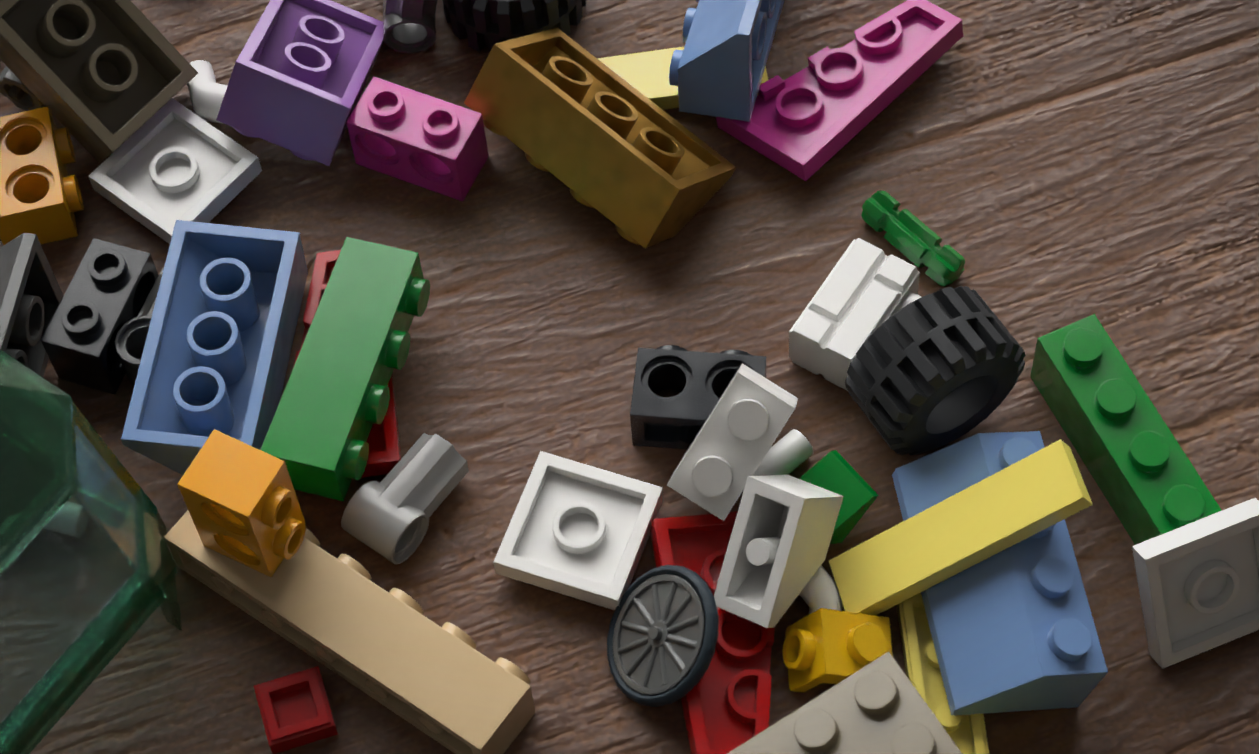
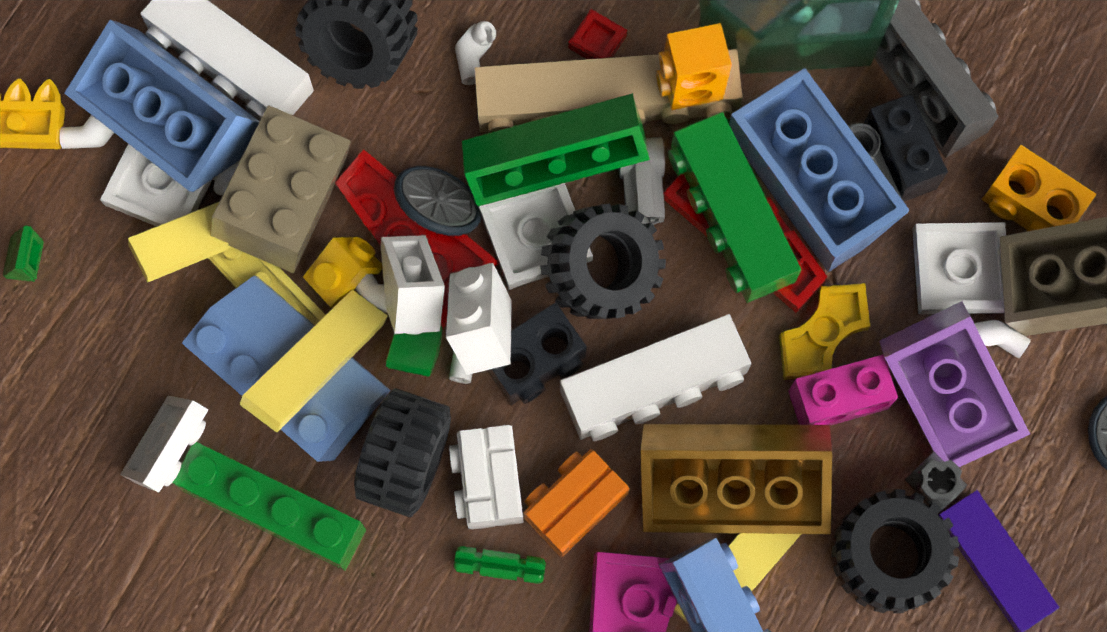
camera: 135 degrees right, 15 degrees up
(398, 216) = (811, 347): none -> yellow tile
(477, 574) = (554, 150): none -> green brick
(540, 417) = (636, 262): none -> black tyre
(588, 286) = (655, 377): none -> white brick
(783, 231) = (574, 501): none -> orange brick

